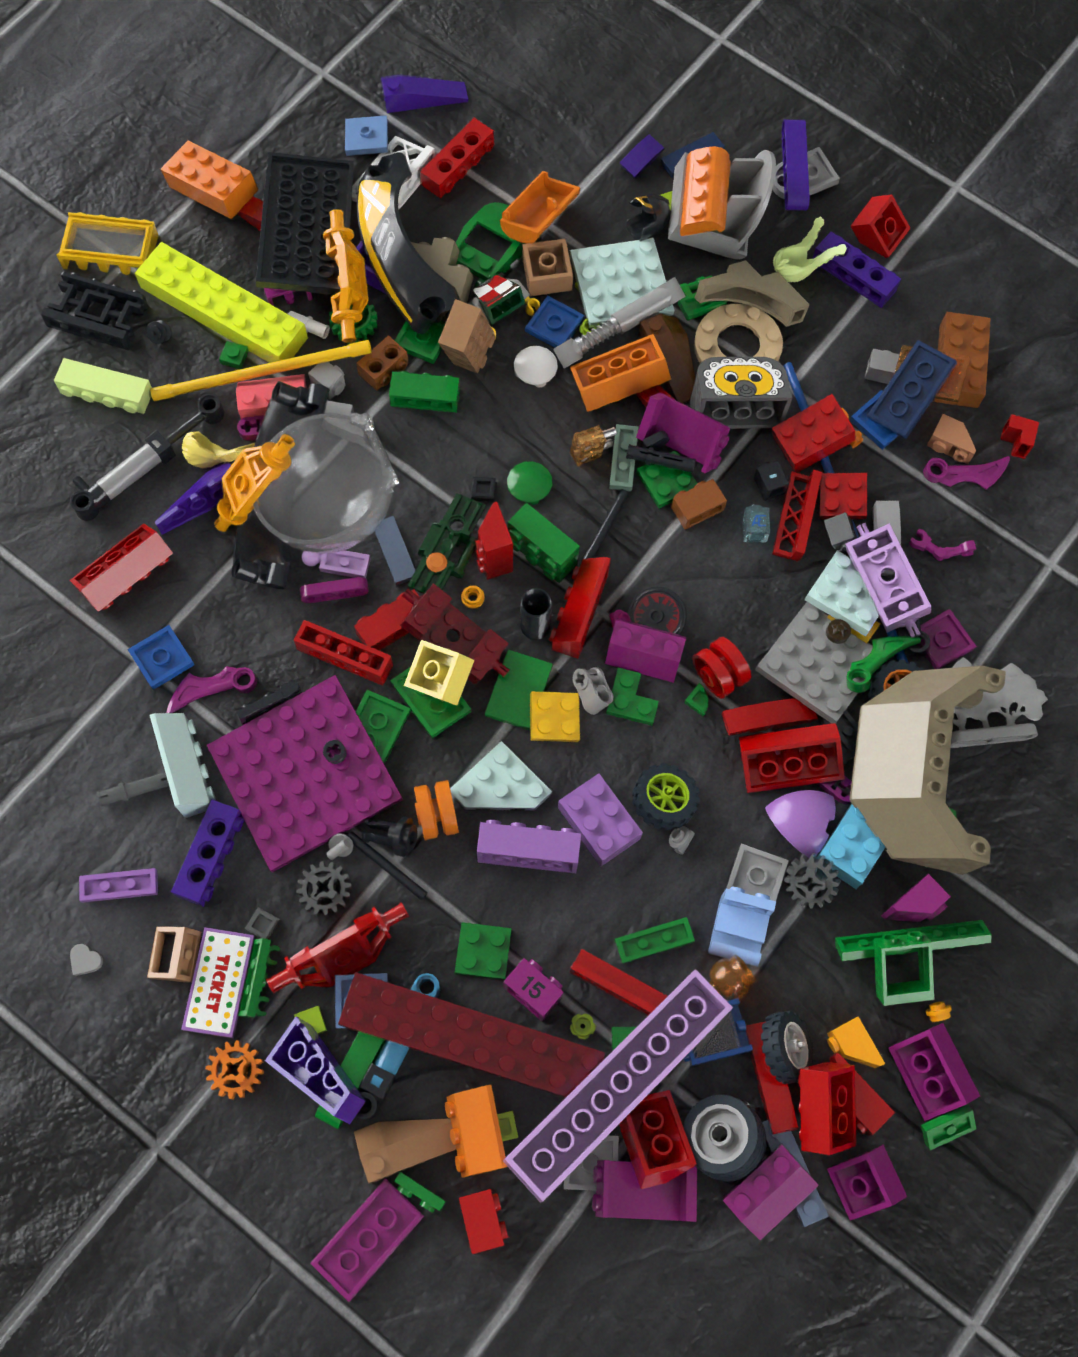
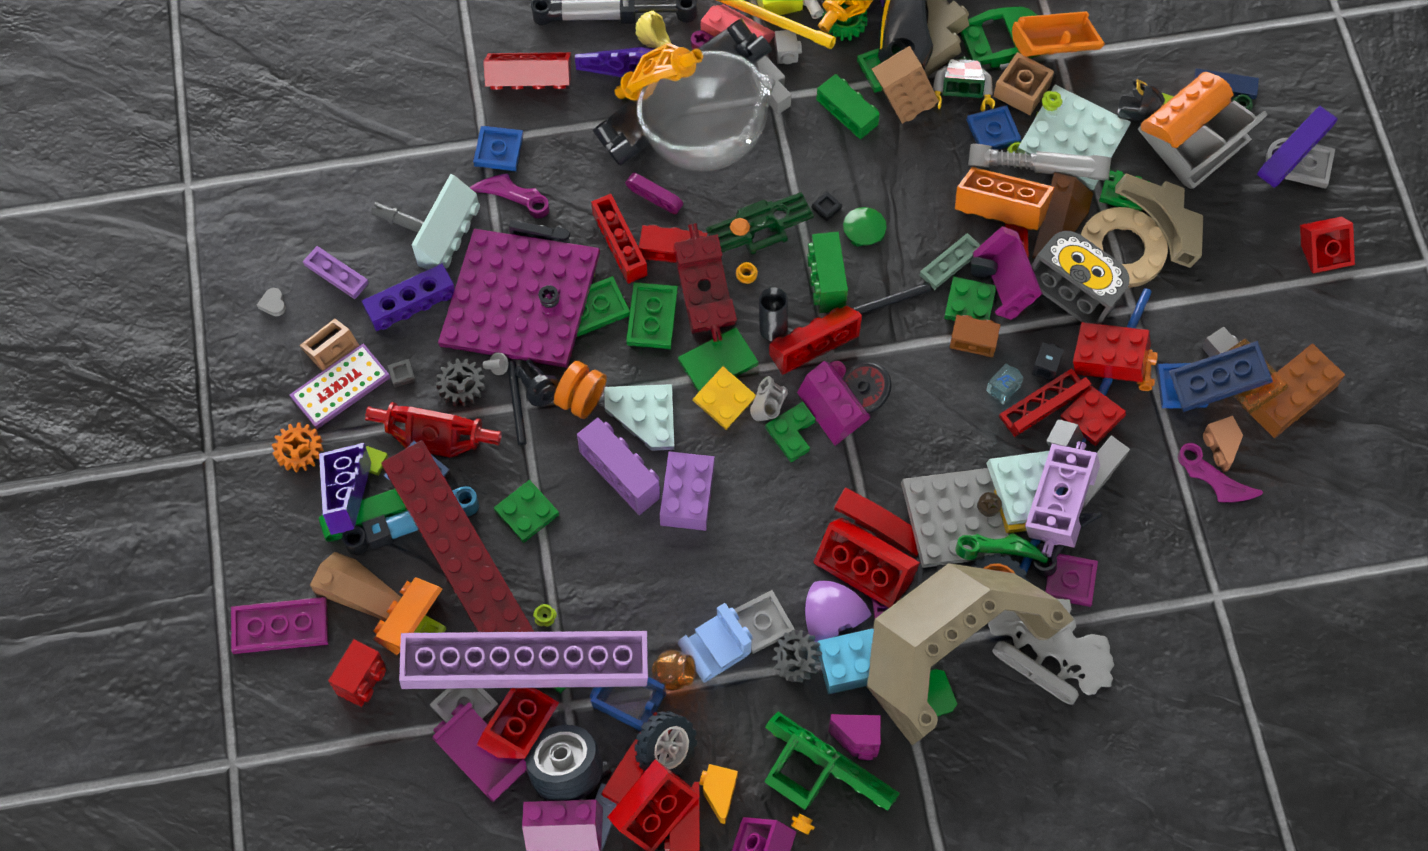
camera: 45 degrees right, 5 degrees down
(256, 978) = (364, 401): green plate -> none
(340, 563) = (676, 178): lavender plate -> none
(380, 361) = (835, 60): dark orange brick -> none
(394, 551) = (722, 198): sand blue tile -> none
(409, 1186) = (335, 615): green plate -> none
(439, 672) = (666, 298): light yellow brick -> none
(494, 545) = (789, 243): red slope -> none
(533, 988) = (532, 559): magenta brick -> none
(535, 365) = (949, 148): white dish -> none
(583, 269) = (1049, 104): none -> lime plate
(590, 444) = (930, 232): clear orange piece -> none
(616, 983) = (591, 599): red fence -> none
(641, 155) = (1181, 55): dark purple slope -> none
(654, 940) = (647, 602): green plate -> none
(657, 815) = (742, 532): black wheel -> none
(660, 458) = (976, 282): black pin -> none
(680, 839) = (733, 553): light grey plate -> none
(698, 700) = (840, 471): green tile -> none
(722, 667) = (874, 458): red wheel -> none
(793, 261) = (1224, 219): yellowish green hair -> none
(861, 279) = (1276, 292): dark purple brick -> none
(940, 553) = (1155, 529): magenta piece -> none
(1021, 433) = (1286, 481): red piece -> none

